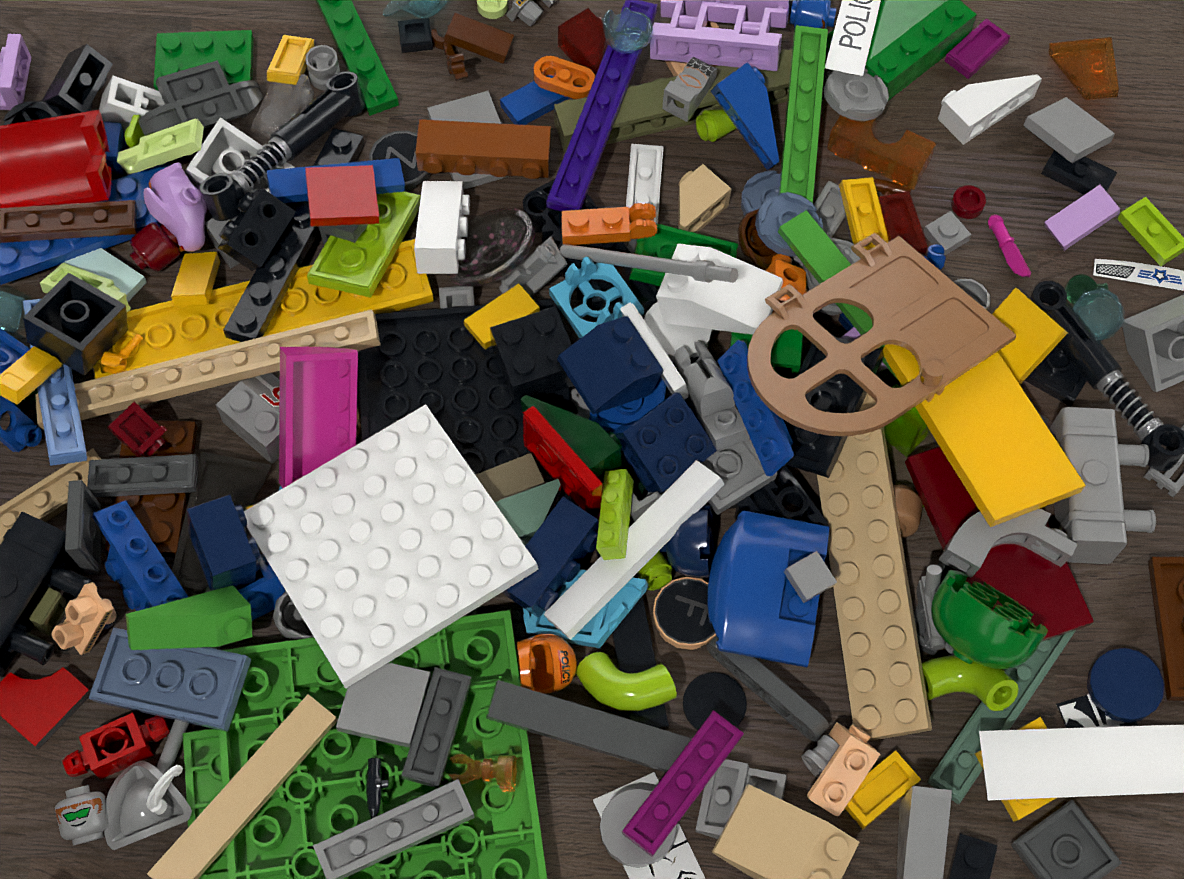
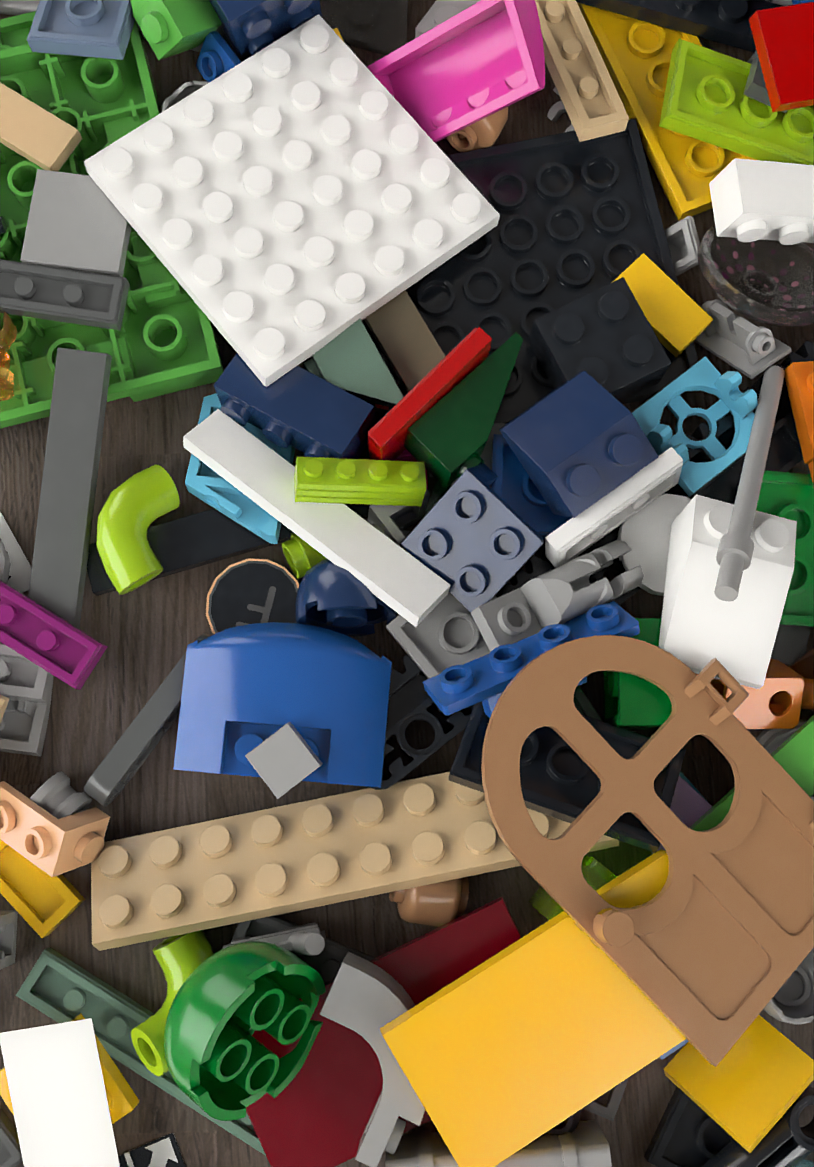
camera: 85 degrees right, 15 degrees up
(545, 663) = (152, 427): orange helmet -> none
(715, 693) = (138, 653): black piece -> none

